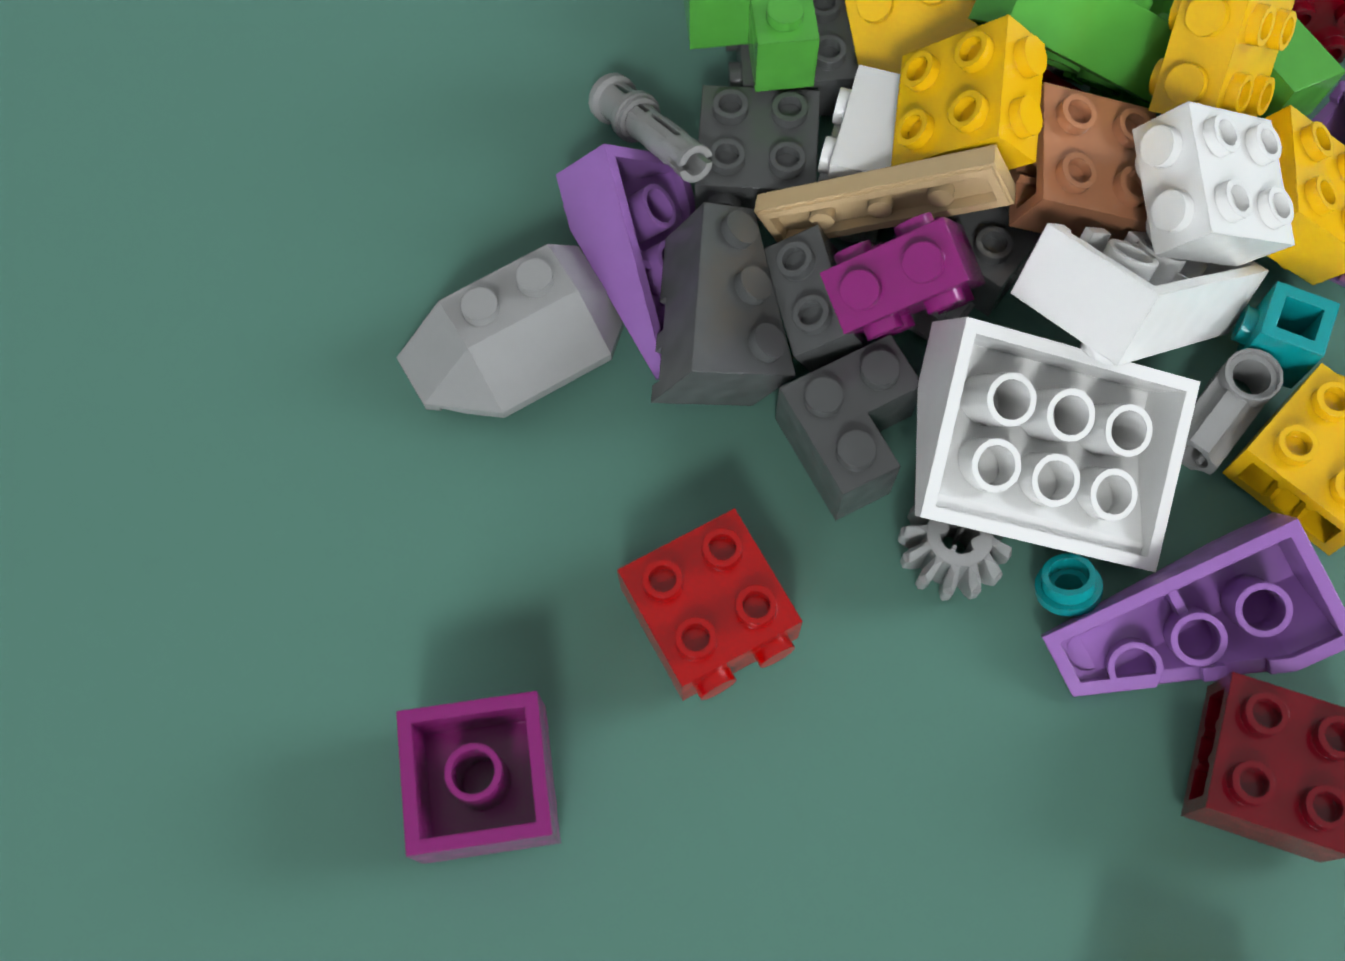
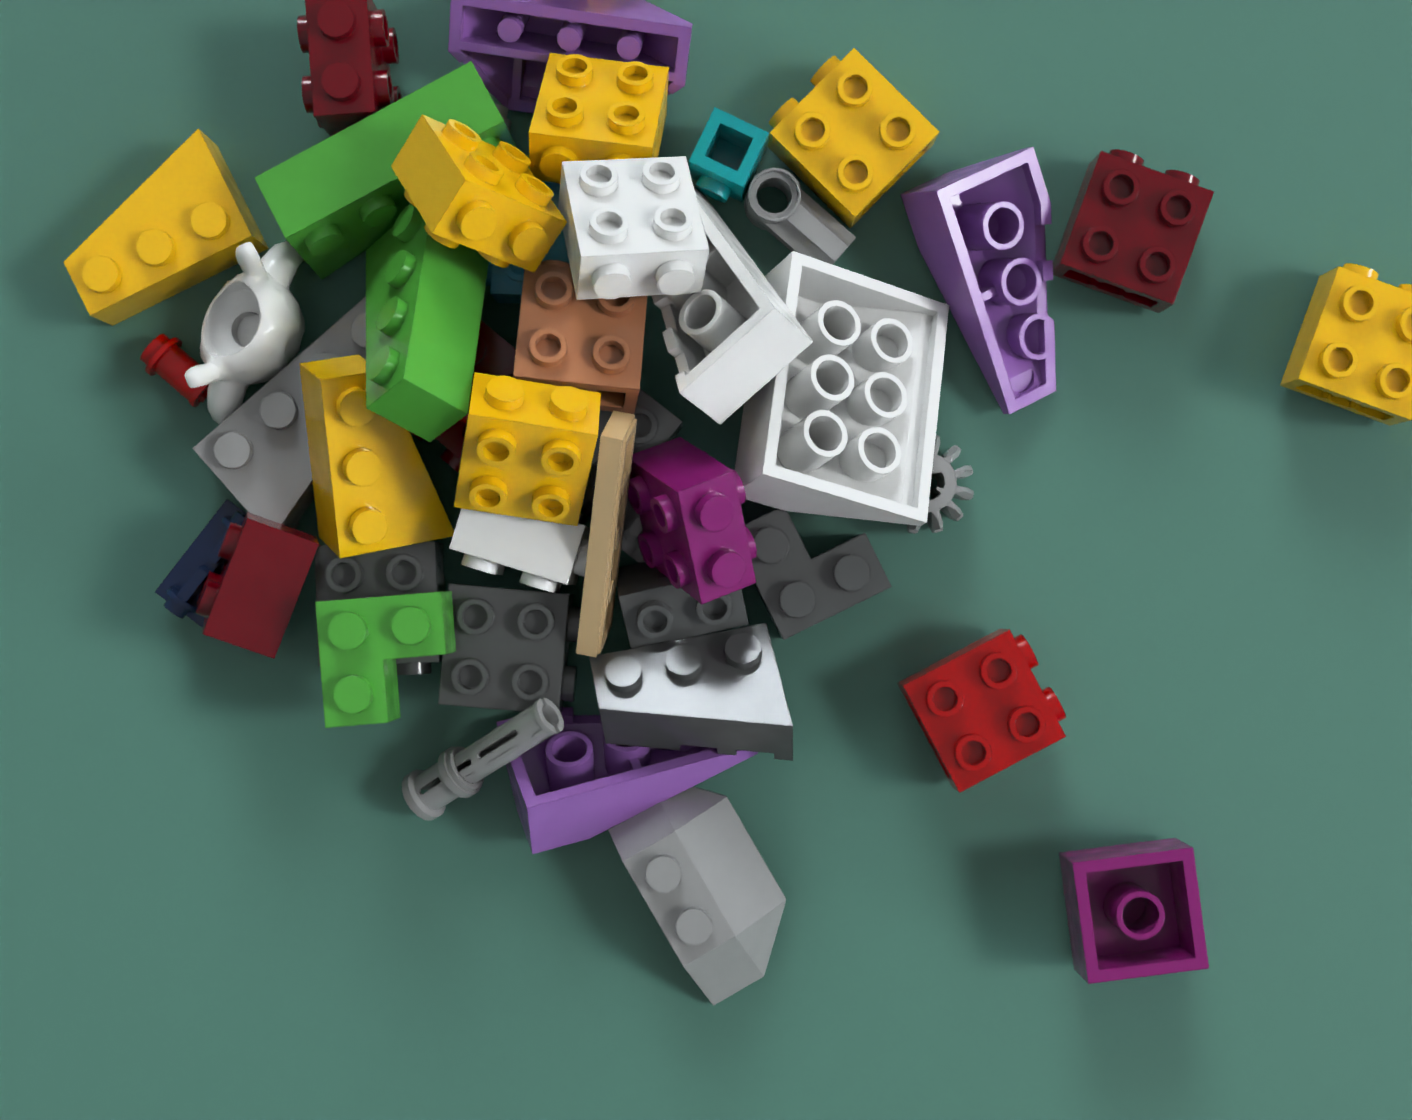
camera: 90 degrees left, 20 degrees up
(1068, 572) = (981, 384): teal plate -> none

